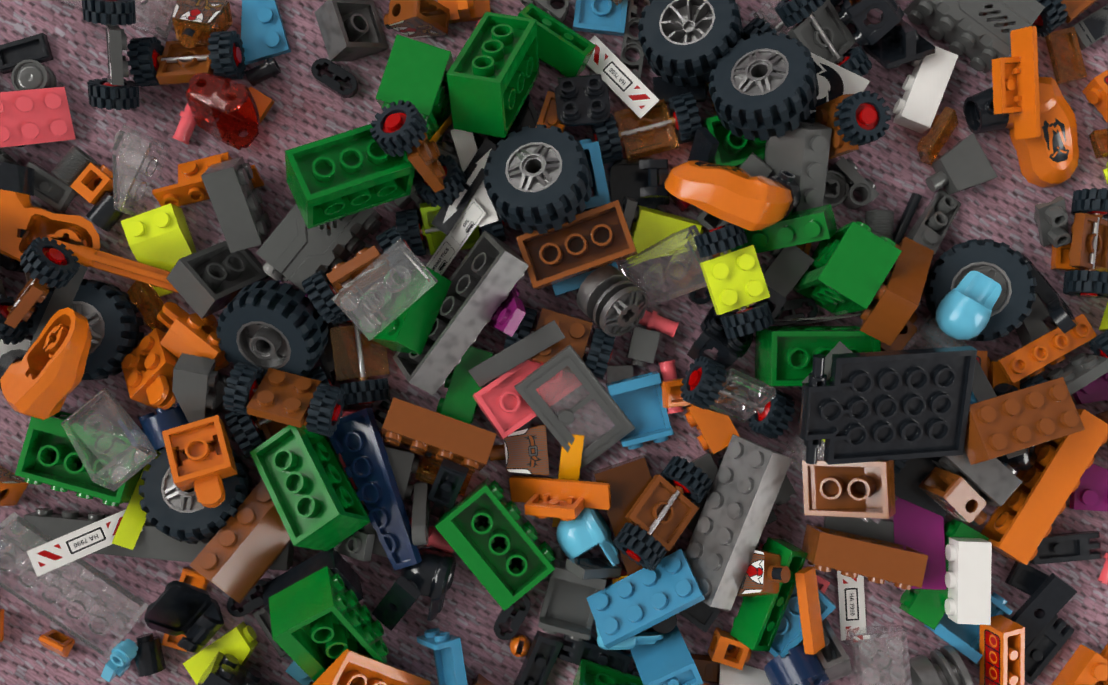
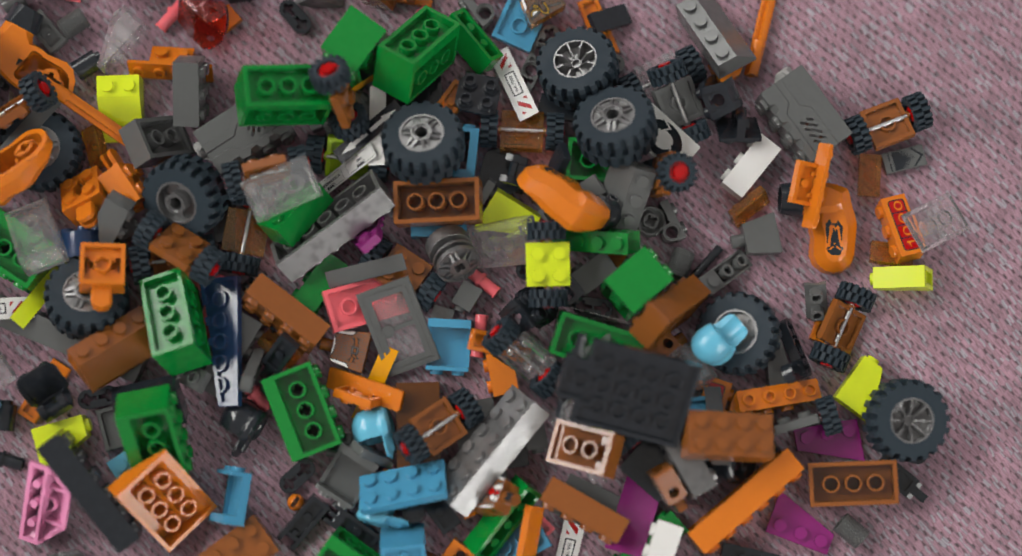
camera: 15 degrees right, 5 degrees down
(88, 180) = (78, 39): orange brick -> none
(396, 602) = (211, 433): black tile -> none

